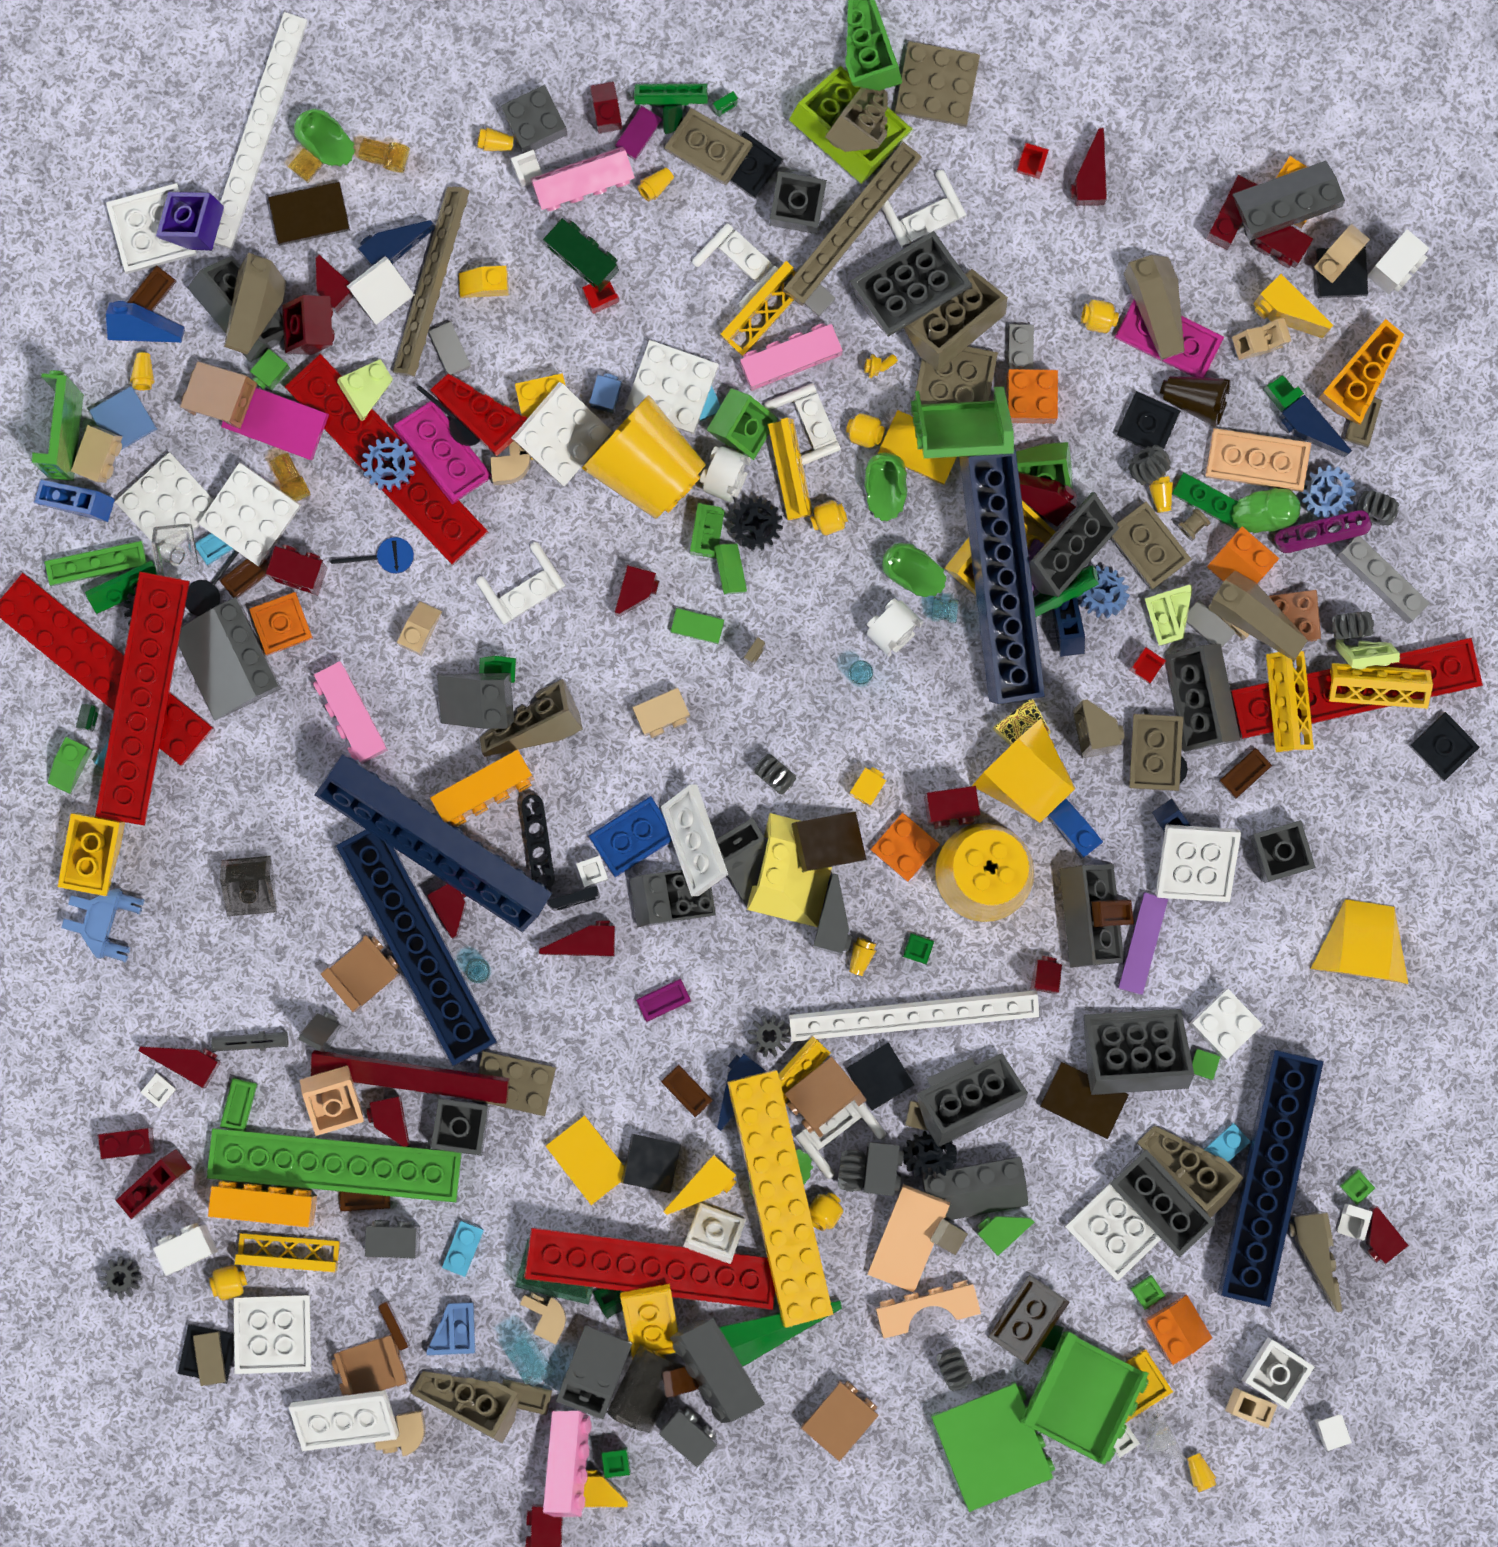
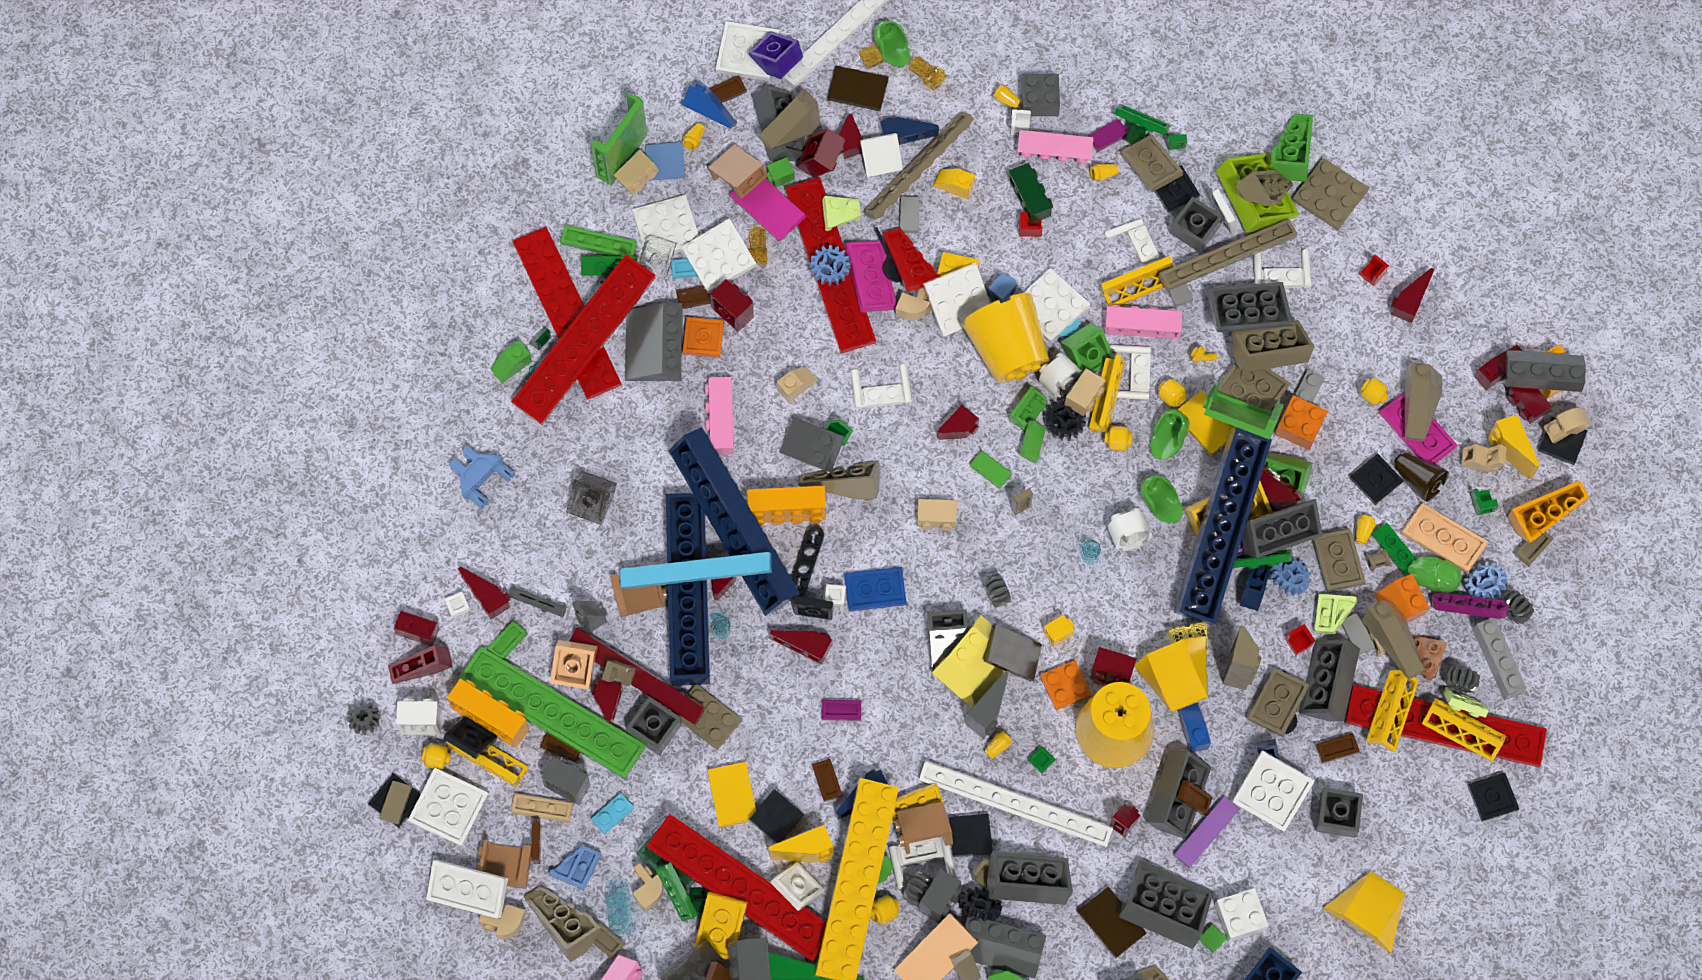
camera: 30 degrees right, 15 degrees down
(75, 500) = (606, 196): blue slope -> none
(90, 853) = (495, 424): yellow slope -> none
(204, 594) = (660, 294): black piece -> none
(256, 1243) = (470, 737): none -> black tile
(378, 1281) = (541, 808): none -> tan tile
(388, 1083) = (618, 672): none -> dark tan panel
(393, 555) = (802, 329): blue piece -> none
(419, 925) = (695, 570): none -> medium azure tile
(582, 1308) = (676, 891): none -> green plate
(594, 1372) = (662, 941): dark grey slope -> none
(606, 107) = (1093, 110): dark red slope -> none
(667, 899) = (882, 641): dark grey slope -> none
(694, 840) = (917, 606): white plate -> none
(765, 482) = (1085, 392): none -> tan brick
(769, 1045) = (910, 763): dark grey gear -> none
(824, 171) = (1225, 211): none -> white tile
(944, 610) = (1171, 536): clear light blue wheel -> none
(1149, 465) = (1364, 504): dark grey gear -> none
(1308, 424) = (1492, 528): dark blue slope -> none
(1394, 267) = (1606, 449): white brick -> none

